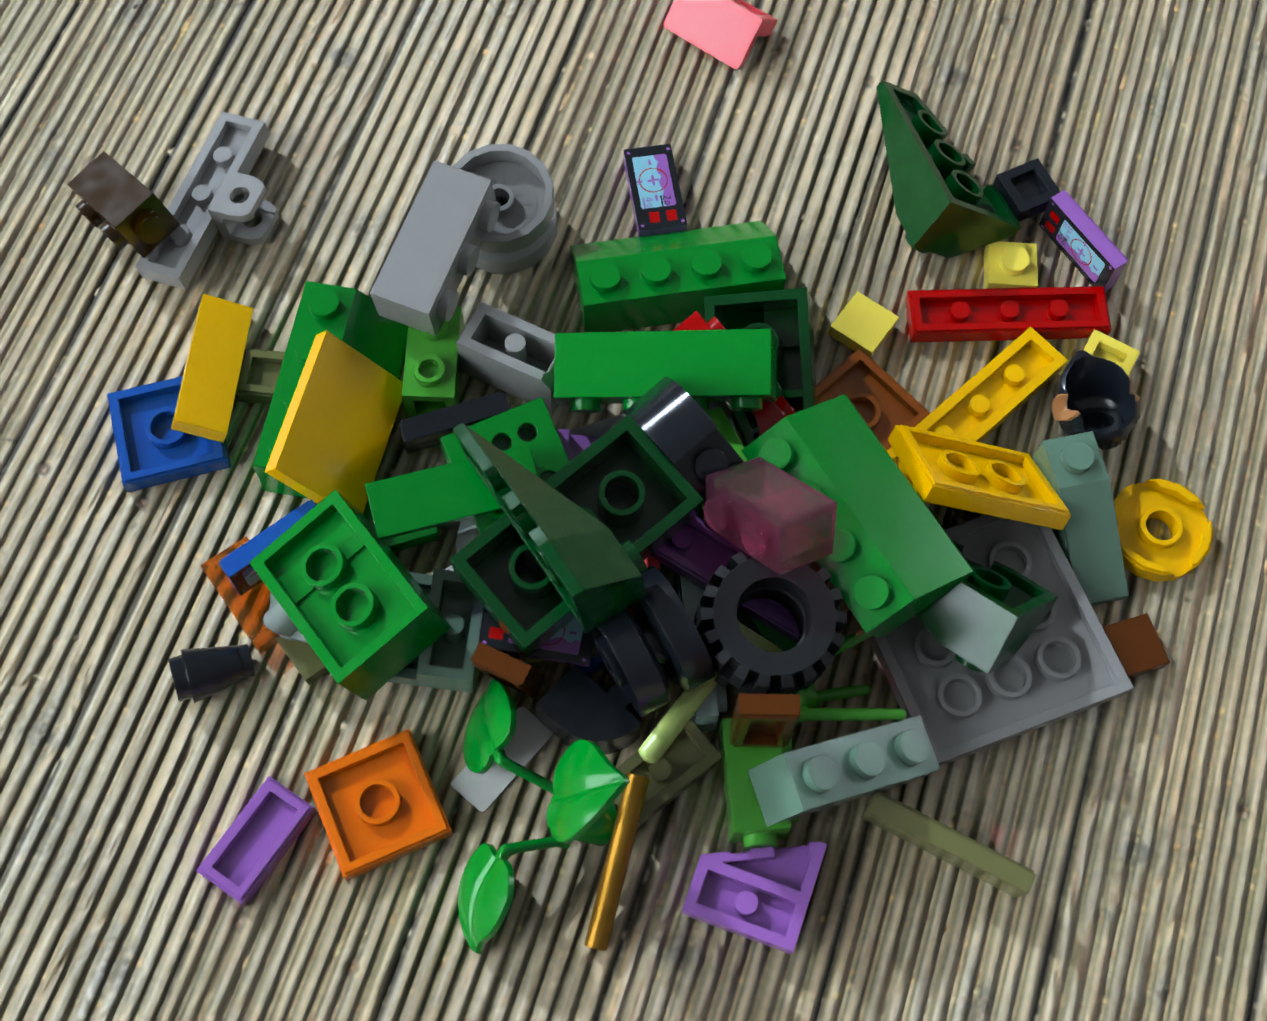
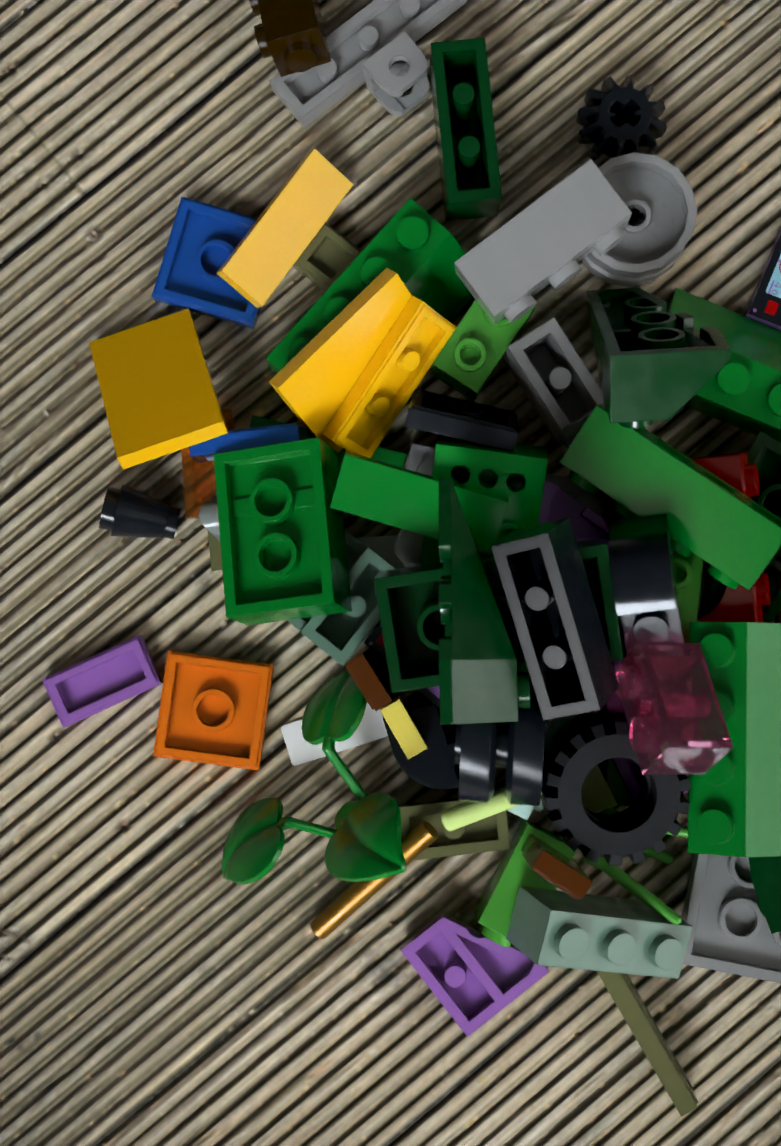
camera: 30 degrees right, 20 degrees up
(168, 546) = (156, 389): none -> yellow tile
(322, 215) = (465, 129): none -> dark green brick
(371, 420) = (389, 378): none -> yellow tile
(442, 140) = (611, 106): none -> black gear
(556, 692) = (403, 728): none -> light yellow tile
(577, 280) = (648, 356): none -> dark green wedge
(620, 482) = (556, 619): none -> black brick

